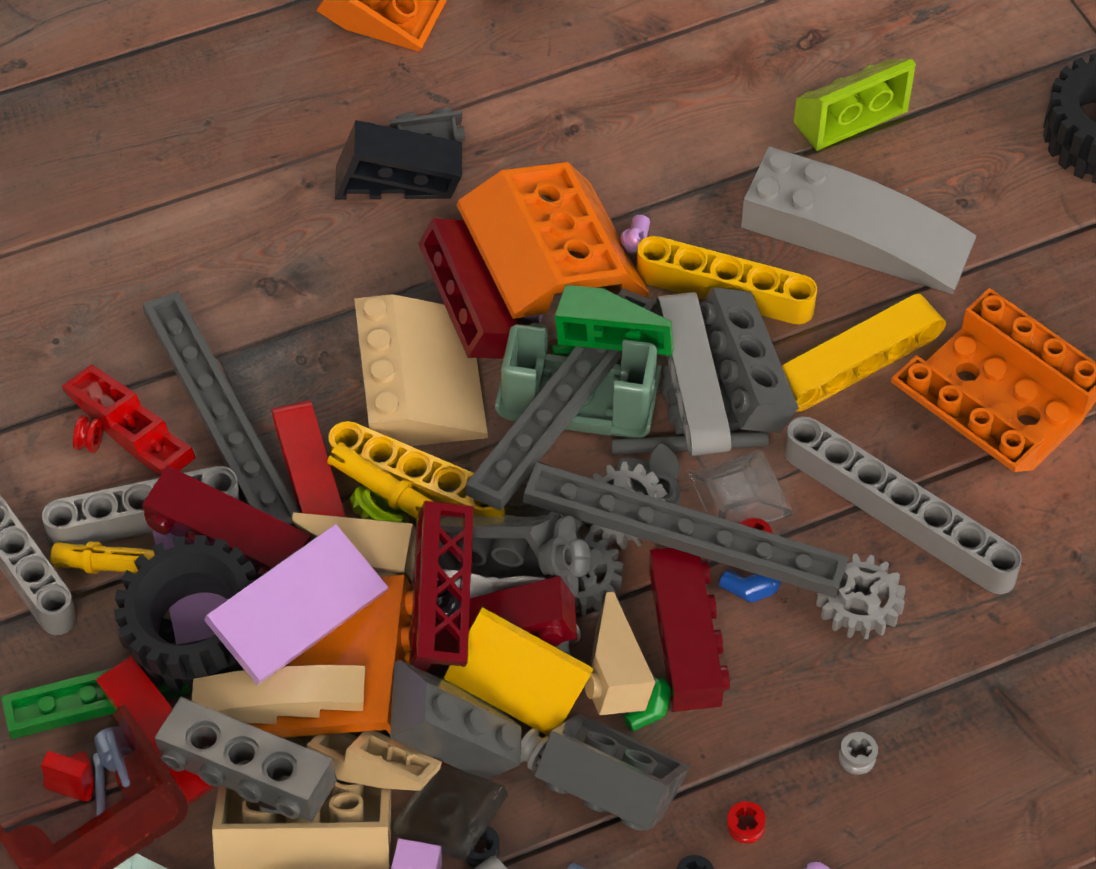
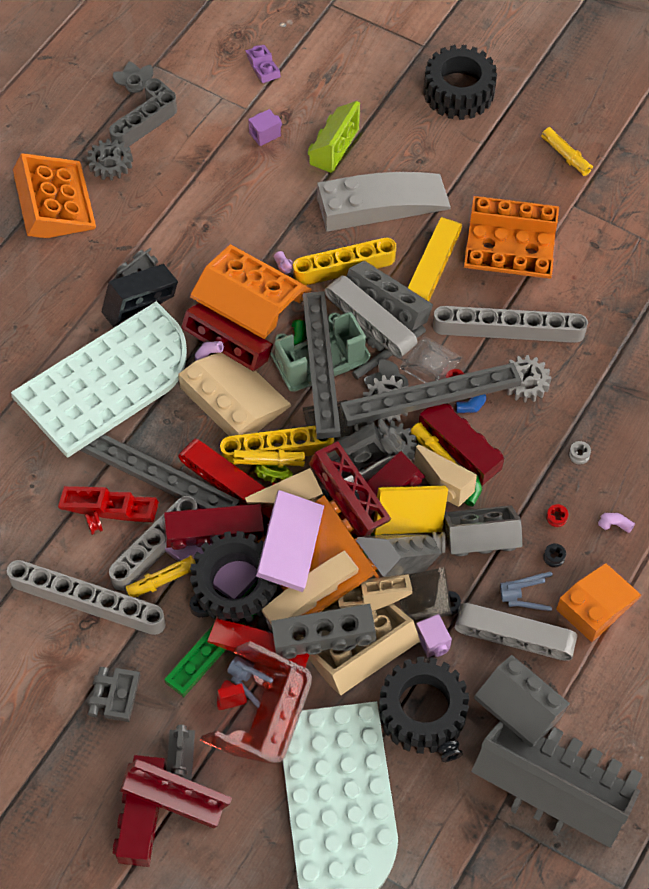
camera: 35 degrees left, 5 degrees up
(260, 254) = (106, 380): none -> light aqua plate
(430, 290) = (207, 348): none -> lavender arm
(603, 319) = (317, 313): green slope -> none
(639, 606) = (429, 441): none -> yellow pin
(765, 35) = (265, 127): none -> medium lavender brick

